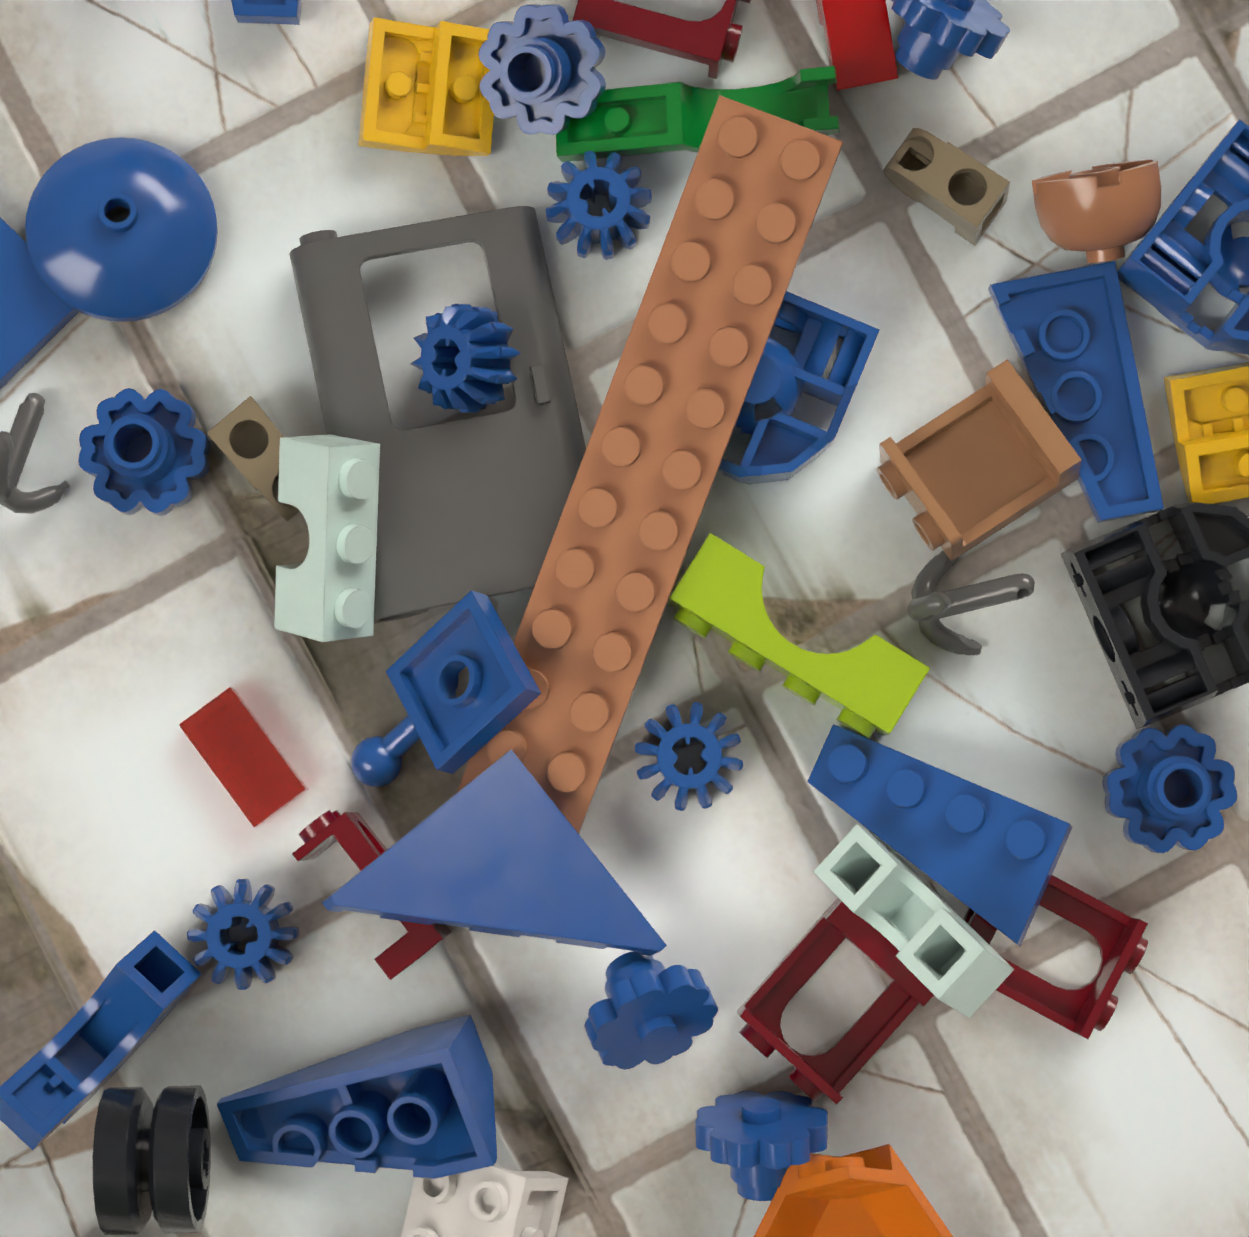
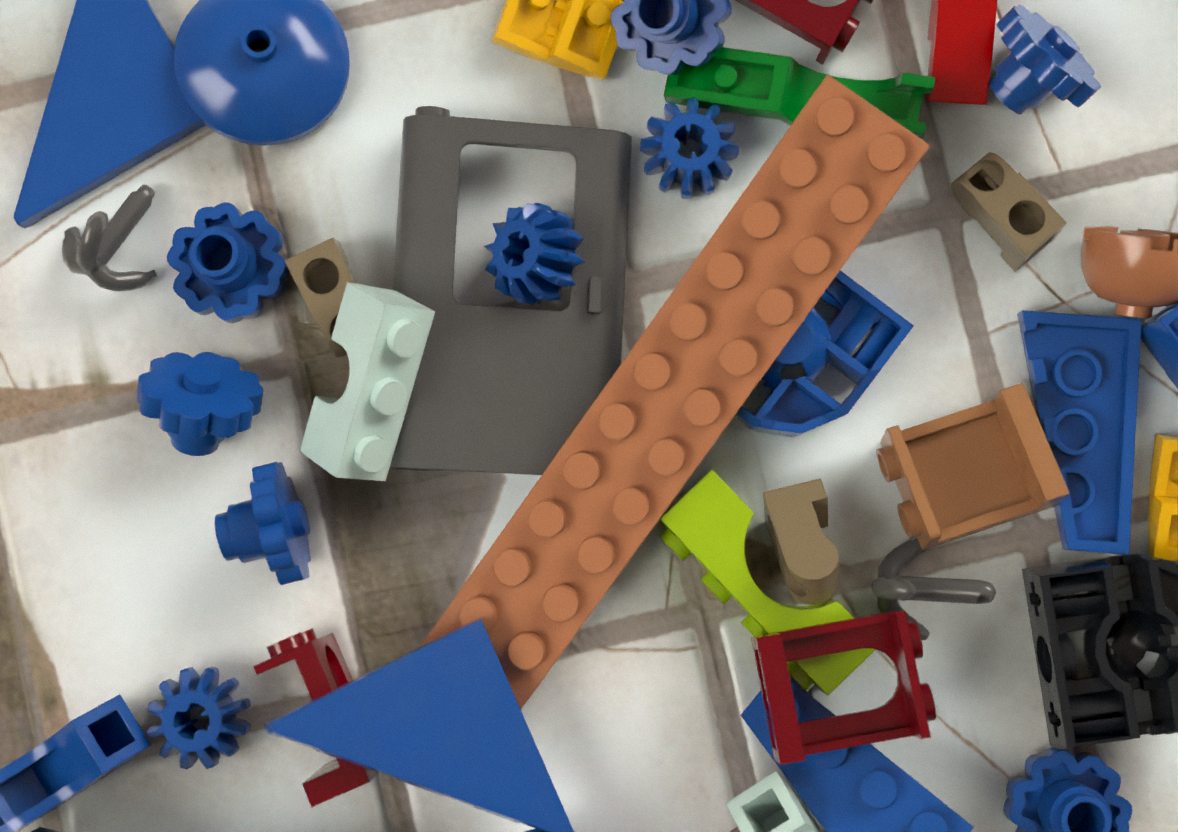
camera: 20 degrees right, 0 degrees up
(155, 602) = (199, 399): none -> blue plant
(243, 757) = (246, 586): clear red tile -> none
(263, 713) = (268, 526): none -> blue plant
(427, 682) = (421, 537): blue plate -> none
(710, 755) = (660, 665): blue gear -> none
(829, 596) = (804, 555): none -> dark tan leg
(927, 653) = (900, 717): none -> dark red panel

